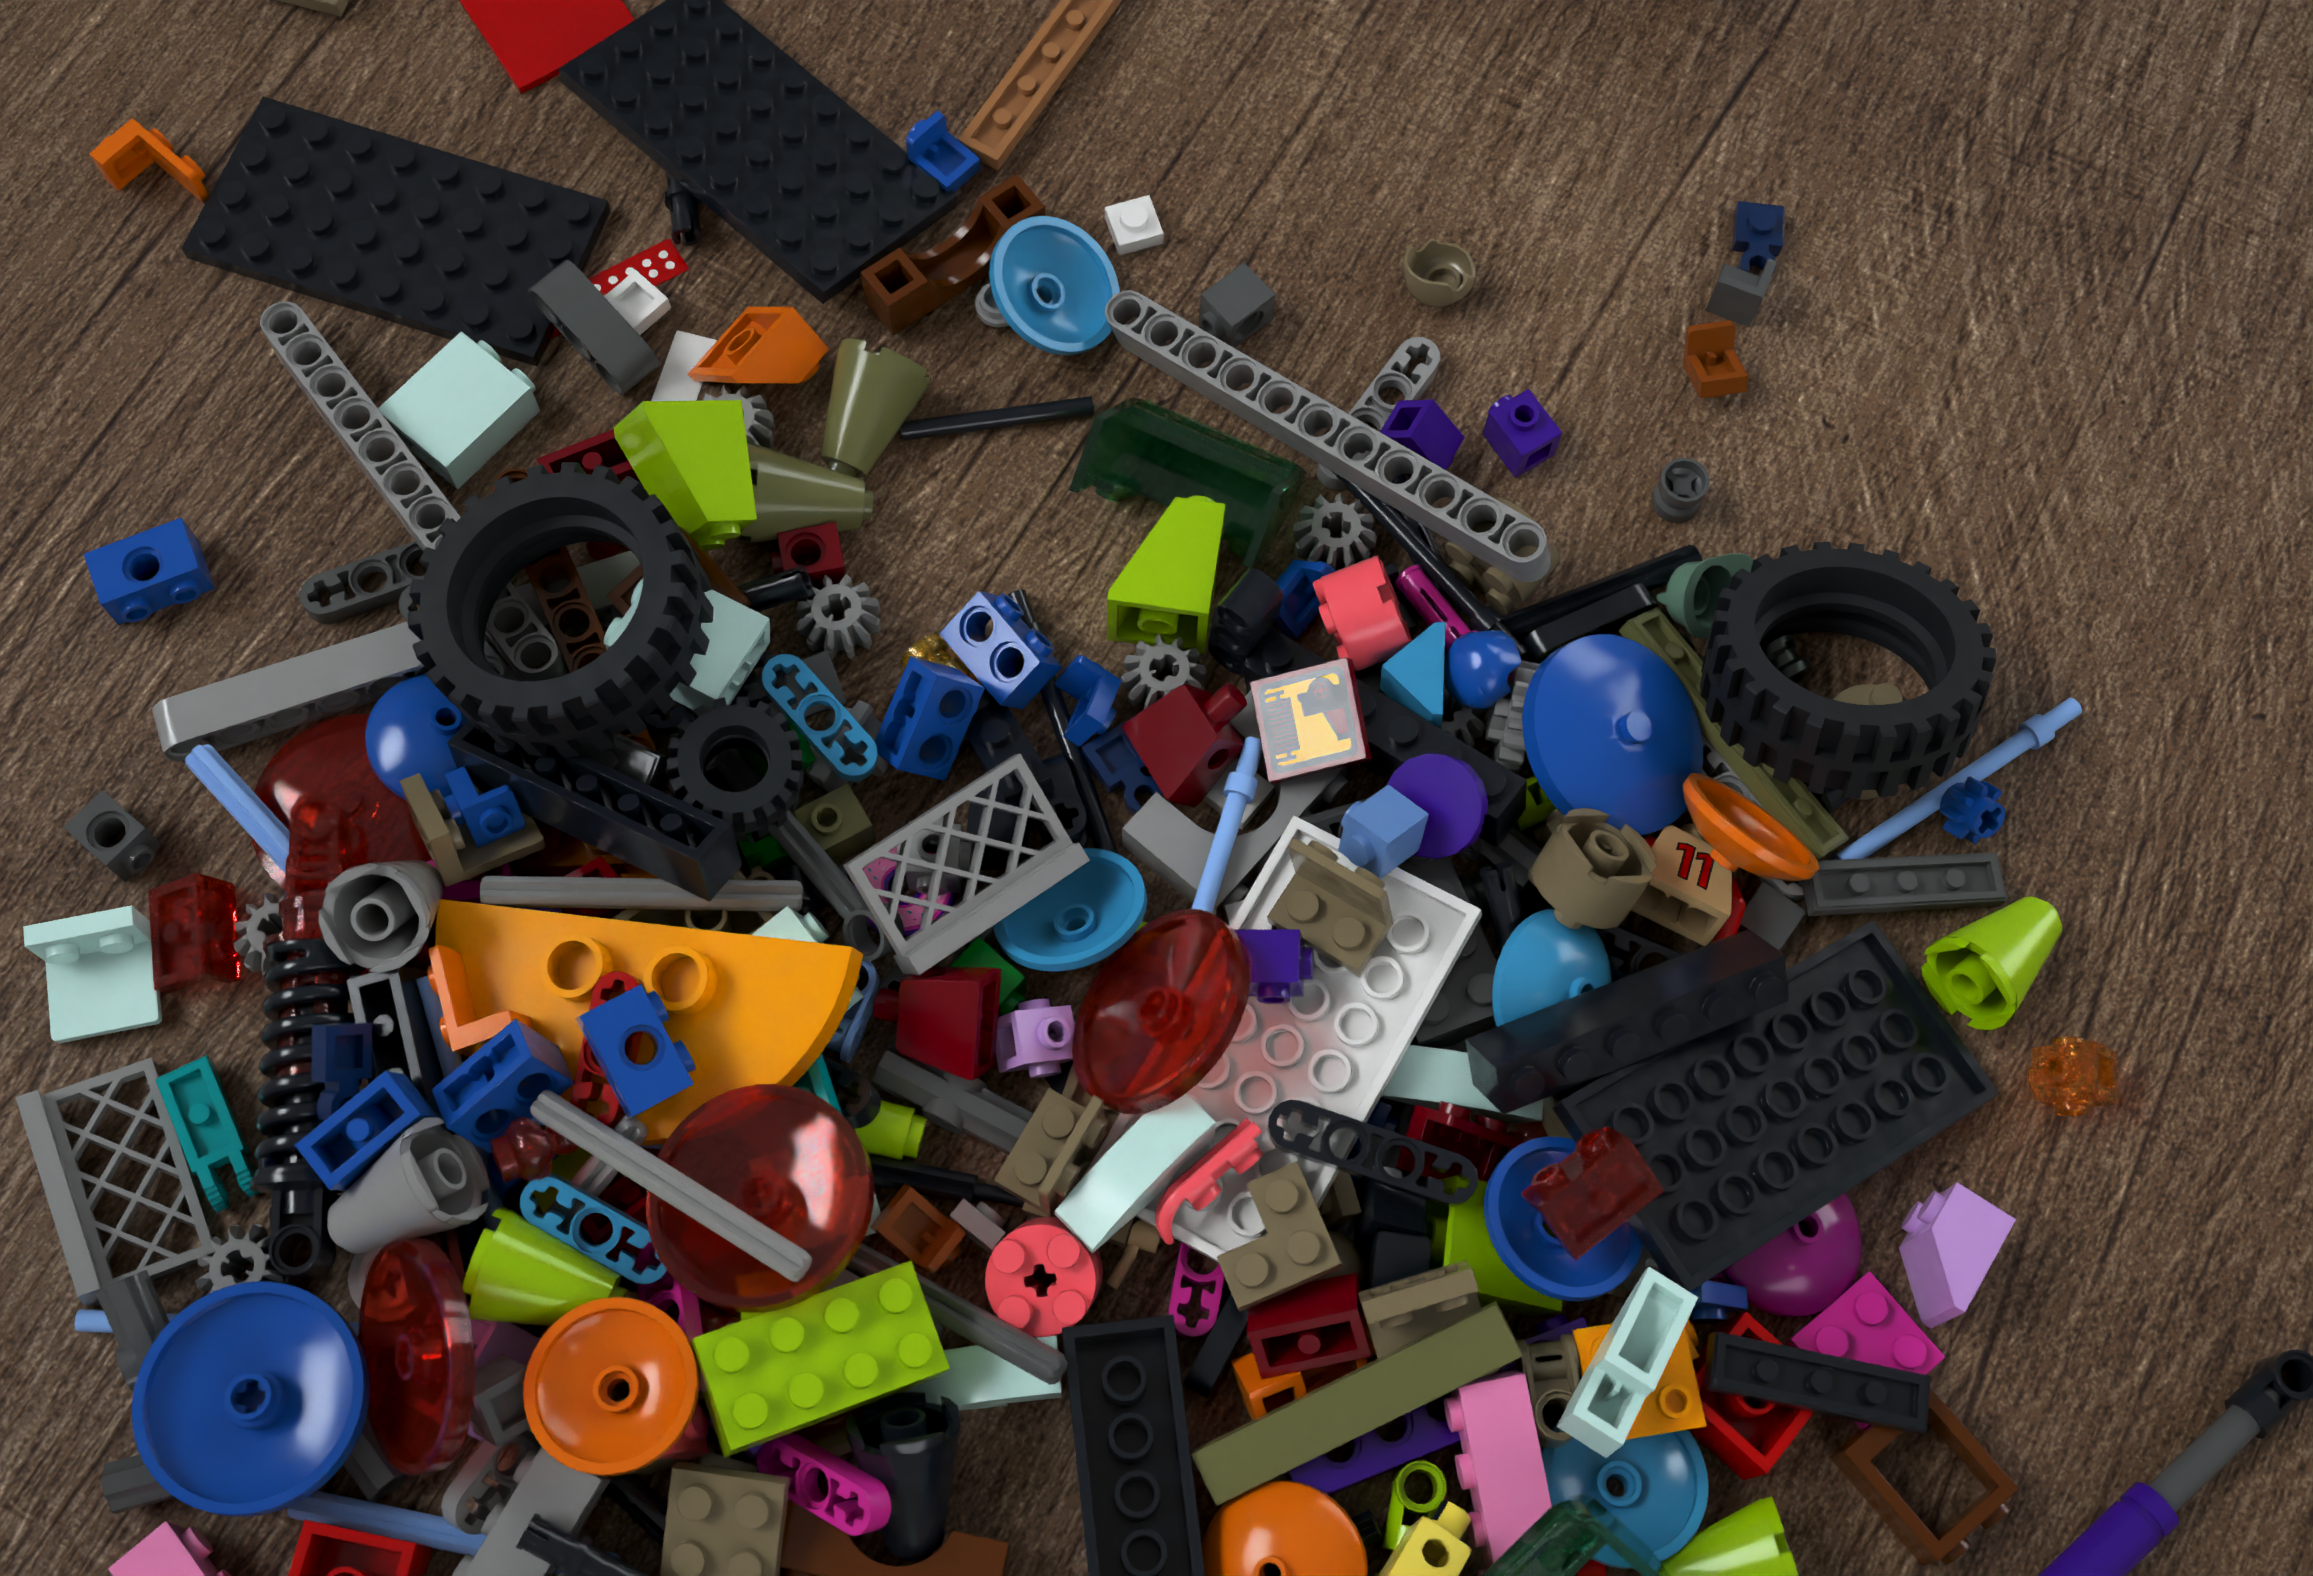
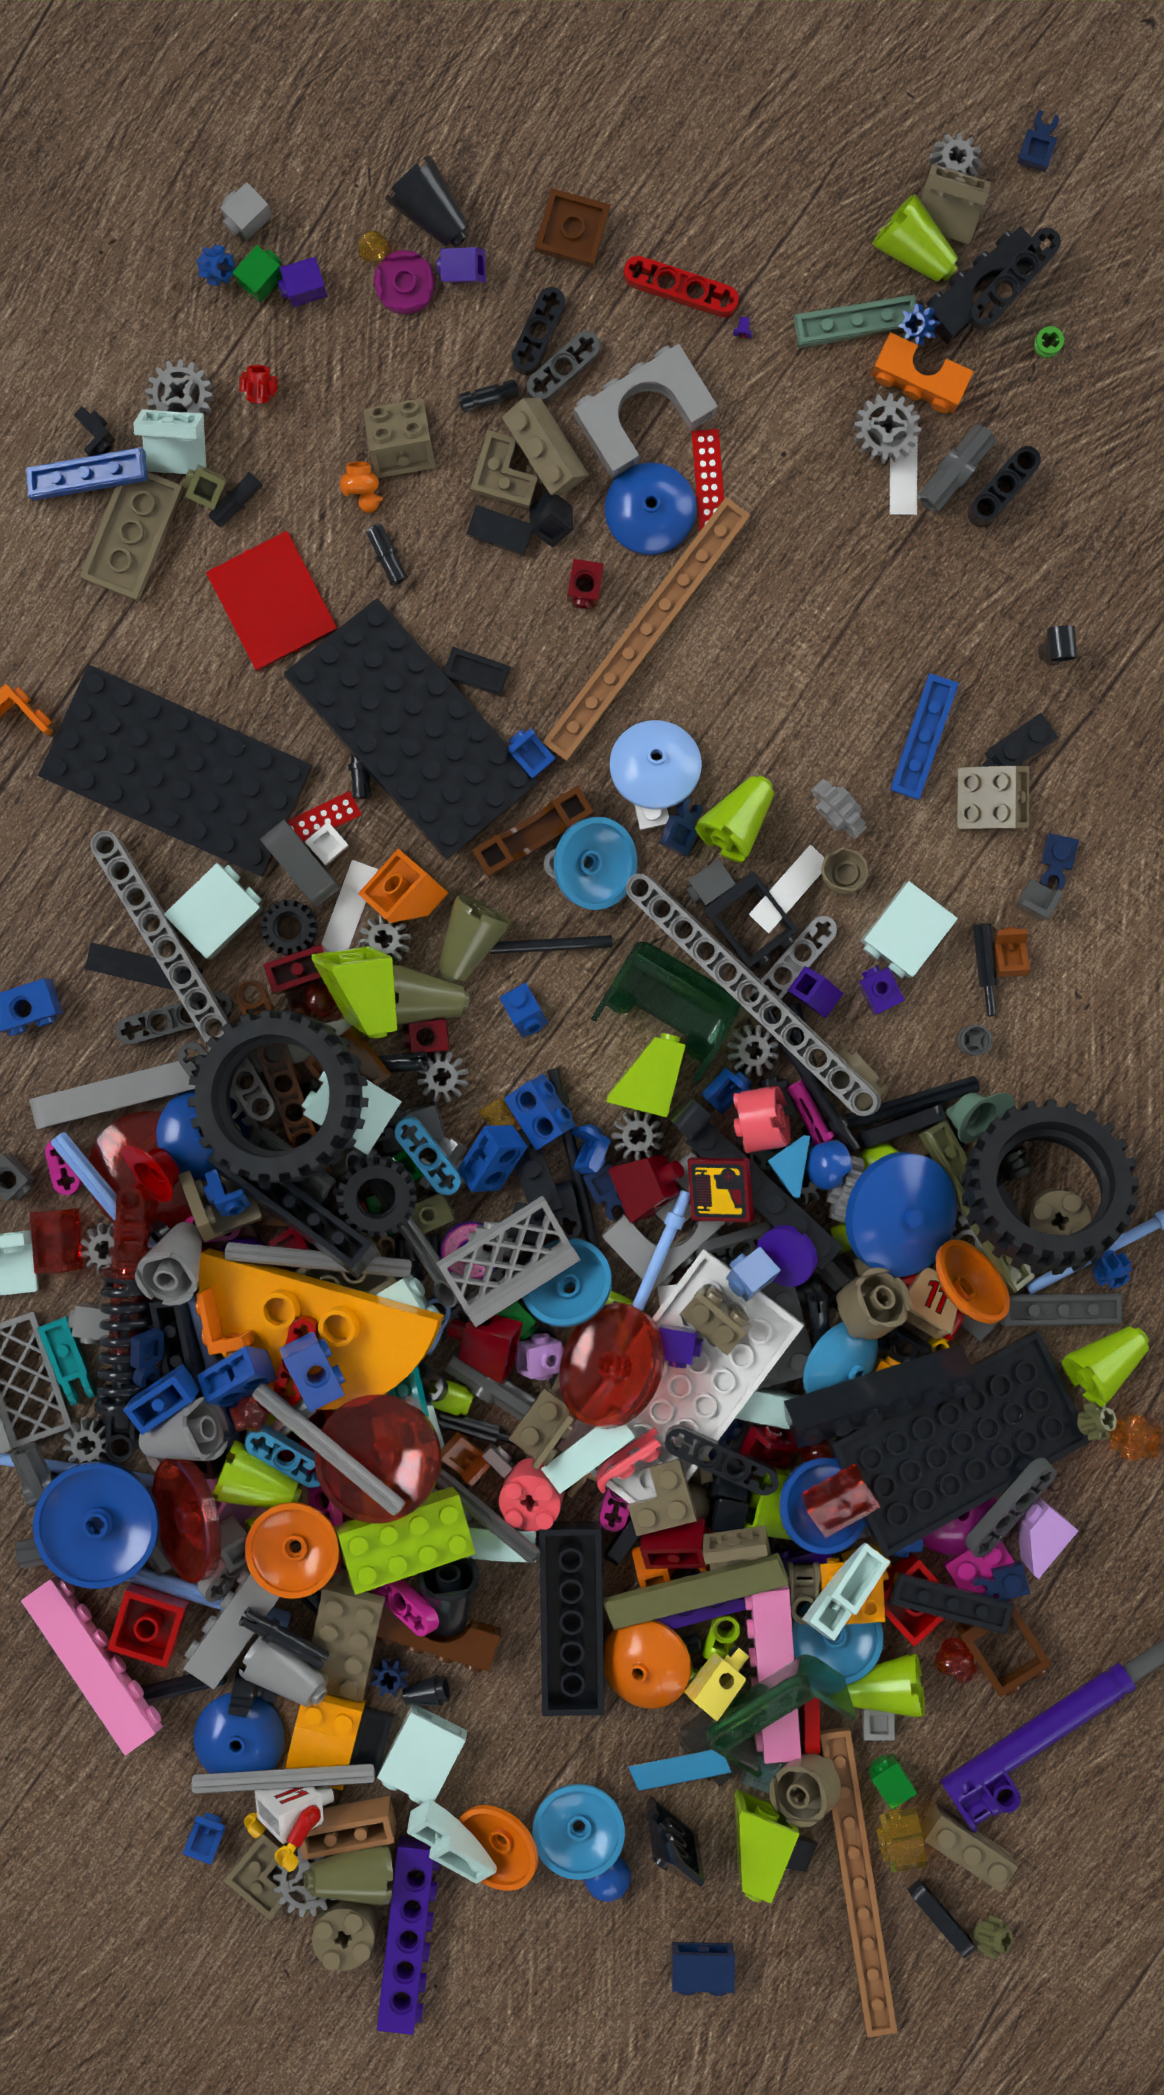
camera: 10 degrees right, 20 degrees up
(199, 820) = (57, 1172): none -> dark pink beam
(237, 1060) = (86, 1321): none -> light grey brick
(327, 509) = (130, 966): none -> black sticker
(353, 773) = (154, 1170): none -> red piece
(572, 401) = (276, 914): none -> black tyre
(853, 65) = (477, 671): none -> black tile
(964, 512) = (524, 1010): none -> blue bracket
(1132, 158) = (653, 782): none -> light blue dish
(1179, 242) = (679, 830): none -> dark blue plate
(1261, 216) = (737, 818): none -> lime cone
(1303, 301) = (761, 956): none -> black window
(1356, 302) = (789, 888): none -> white sticker
(1417, 180) = (839, 808): none -> light grey gear
(1527, 93) = (923, 736): none -> blue plate
(1550, 344) = (908, 930): none -> light aqua brick
(1645, 157) = (993, 797): none -> dark tan bracket
(1668, 98) = (1021, 743): none -> black hinge
(1677, 386) = (986, 963): none -> black axle
(1844, 1508) = (955, 1660): none -> clear red animal
(1906, 1345) = (1006, 1581): none -> dark blue plate
(1928, 1144) = (1010, 1507): none -> dark grey beam
(2003, 1052) = (1096, 1421): none -> olive gear

